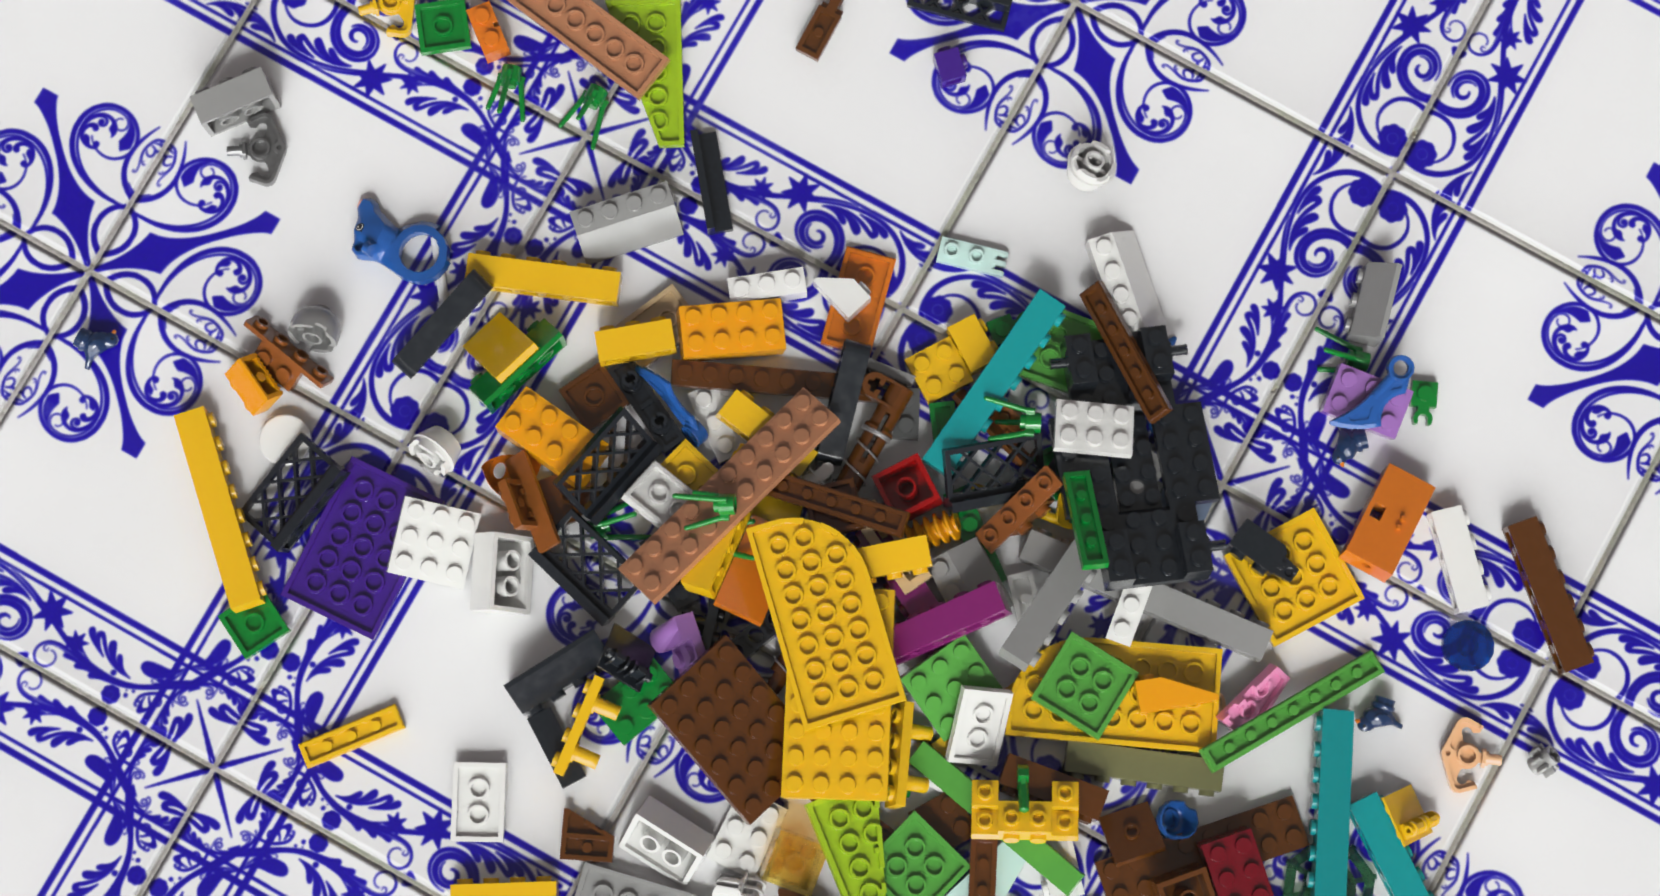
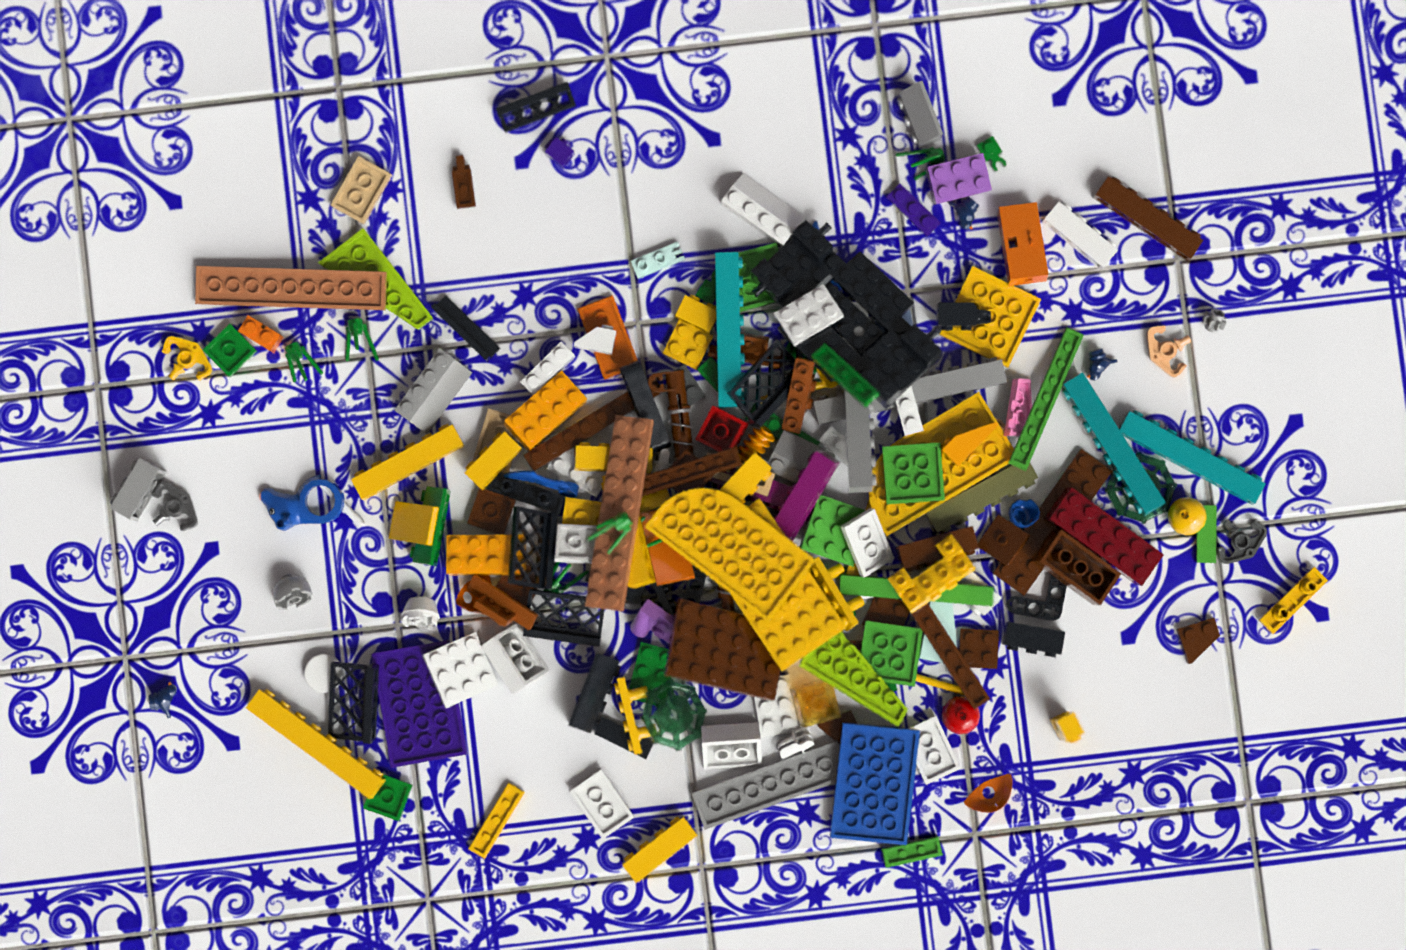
camera: 35 degrees left, 5 degrees up
(253, 384) = (279, 653): light orange brick -> none
(283, 358) = (285, 625): dark orange bracket -> none
(442, 323) = (367, 534): black beam -> none
(585, 840) = (681, 780): reddish brown wing -> none
(627, 658) = (628, 654): black hinge -> none
(643, 760) = (681, 707): none -> clear green plate
(895, 374) = (662, 367): light grey tile -> none
(1023, 788) = (916, 555): green bar -> none
(1028, 422) = (766, 339): green plant -> none
(1090, 166) = (690, 153): white cone -> none
(1126, 352) = (794, 253): reddish brown tile -> none
(1291, 401) = (913, 210): none -> dark purple plate
(1369, 410) = (965, 184): blue piece -> none
(1408, 815) = (1157, 411): yellow hinge -> none
(1467, 645) = (1121, 283): clear blue tile -> none

